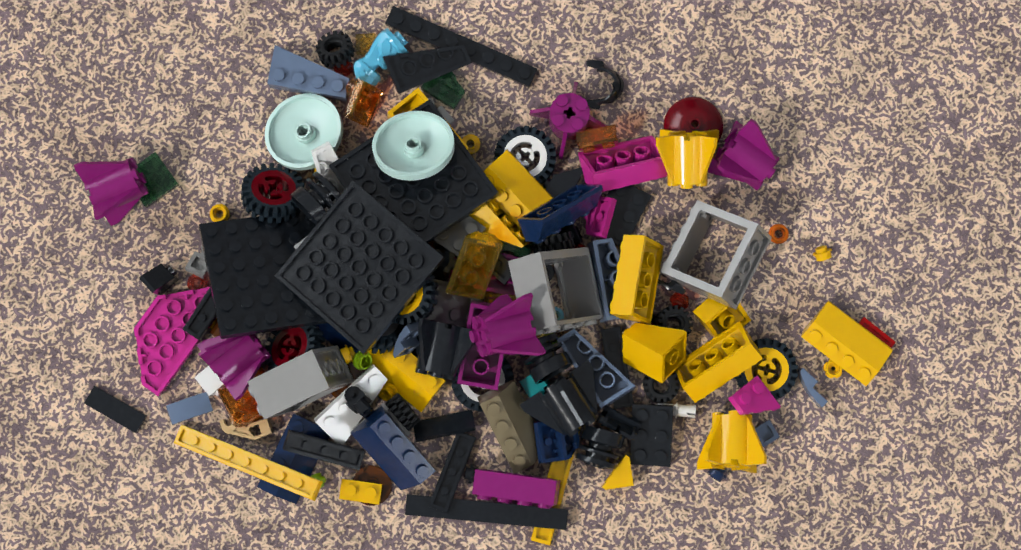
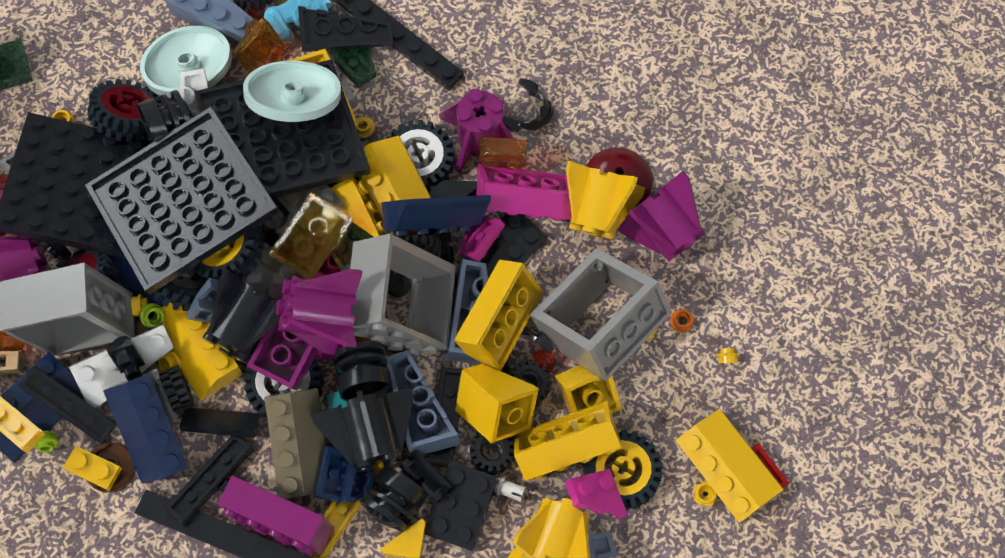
camera: 10 degrees right, 15 degrees down
(808, 383) = (670, 500): sand blue slope -> none

